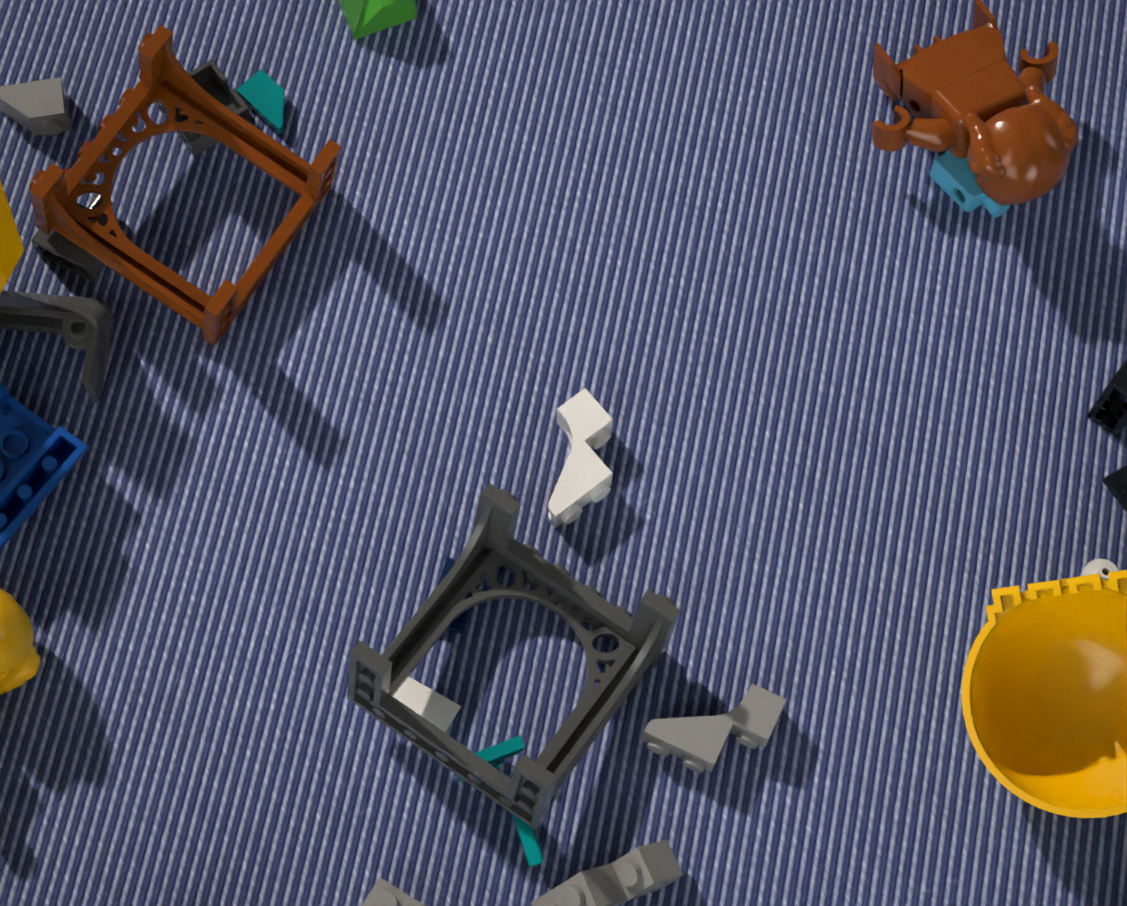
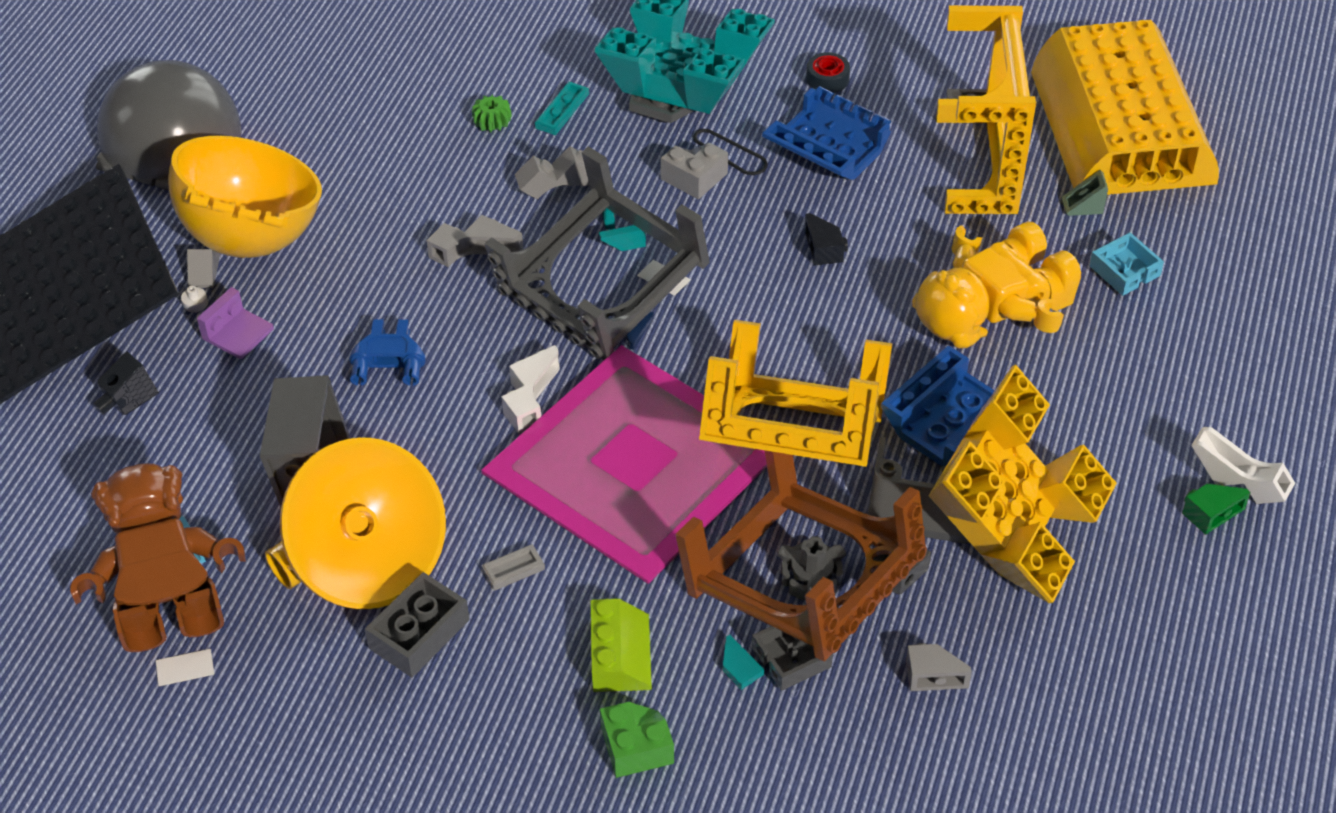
camera: 170 degrees left, 20 degrees down
(108, 467) = (734, 385): none -> yellow arch
(174, 789) = (824, 241): none -> black slope
(182, 218) = (809, 564): none -> dark grey piece
(405, 97) = (619, 647): none -> lime slope
(421, 368) = (626, 463): none -> baseplate
(551, 198) = (513, 567): none -> light grey tile
(645, 89) = (417, 624): none -> dark grey brick
(747, 161) = (359, 524): none -> yellow dish
(791, 501) = (387, 351): none -> blue connector
(839, 259) = (298, 424): none -> dark grey window
(900, 39) = (184, 667): none -> white sticker
(1018, 521) = (231, 326): none -> medium lavender bracket

